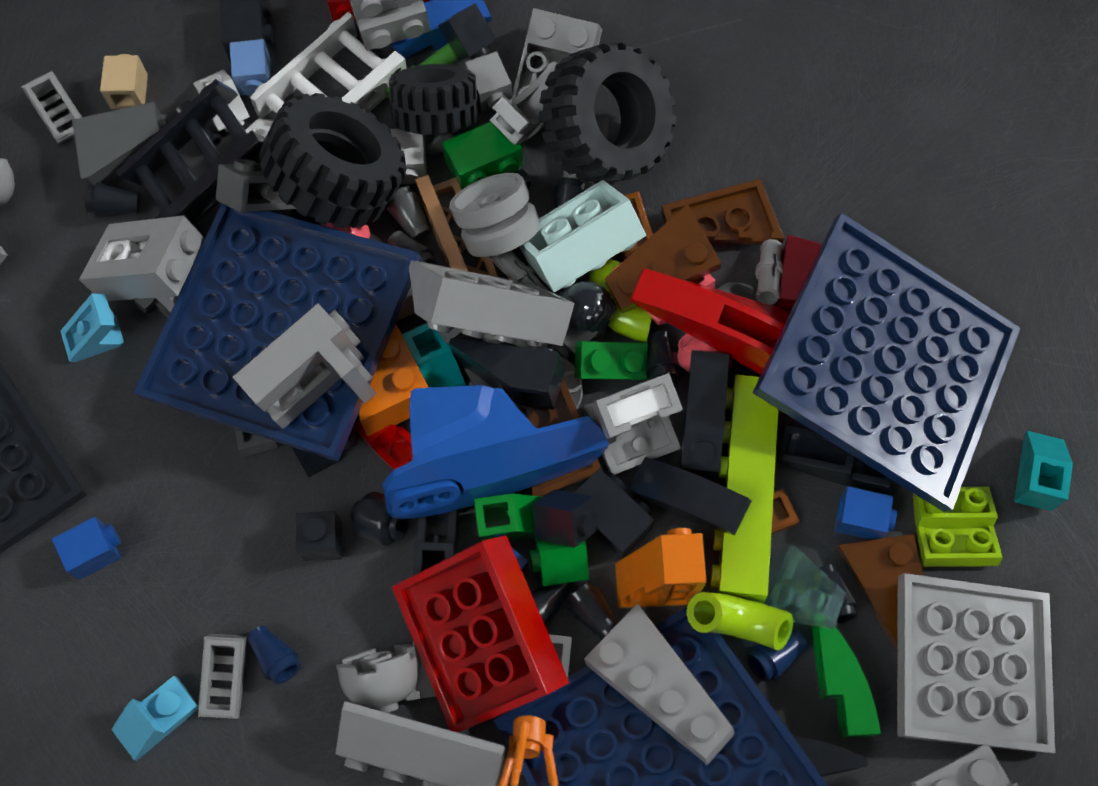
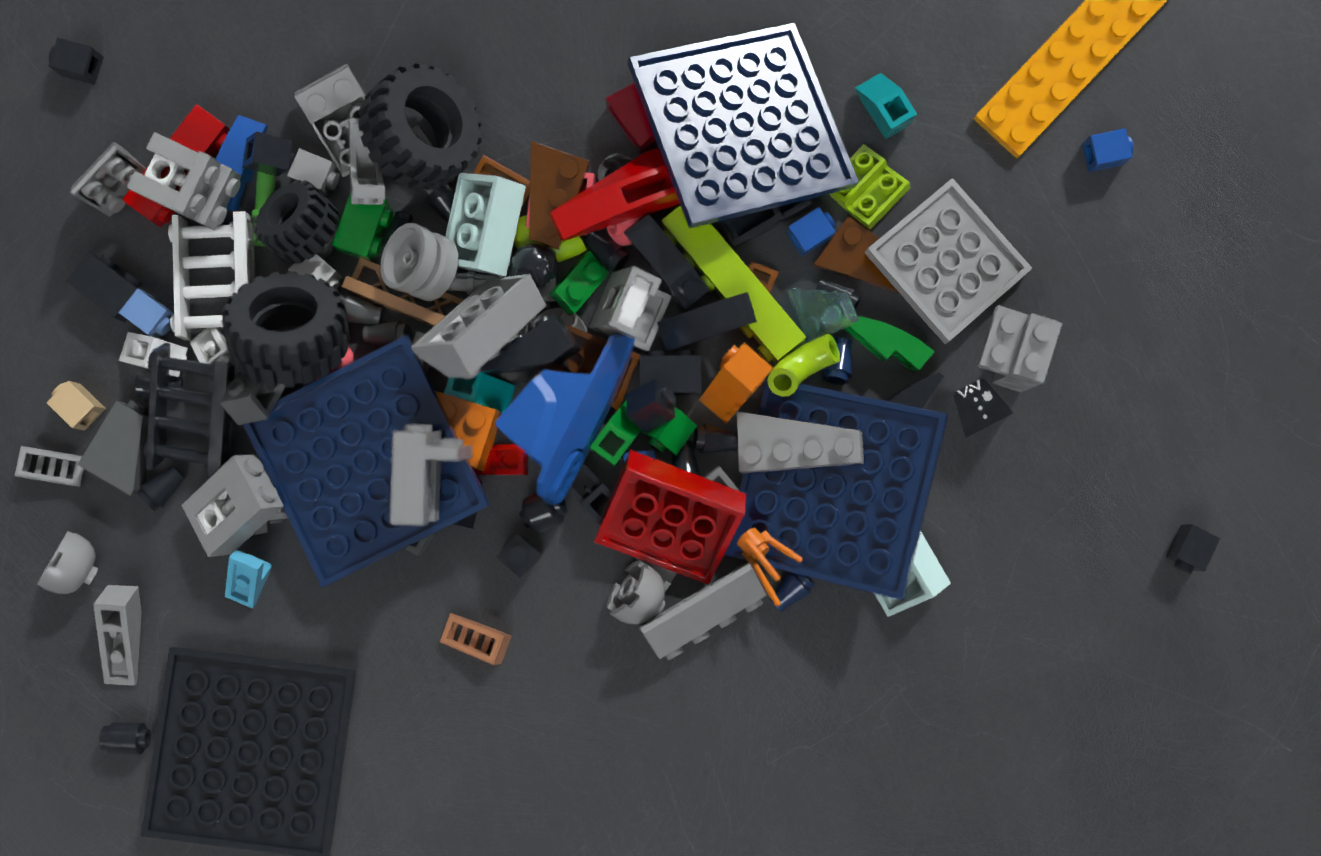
camera: 50 degrees left, 15 degrees up
(87, 547) = (394, 696): blue brick -> none
(154, 718) = (536, 742): medium azure slope -> none
(208, 674) = (529, 664): light grey slope -> none
(215, 593) = (498, 650): none -> nougat slope
(274, 656) = (565, 644): dark blue cone -> none
(732, 214) = (554, 117): reddish brown wing -> none
(769, 272) = (616, 132): light grey pin -> none

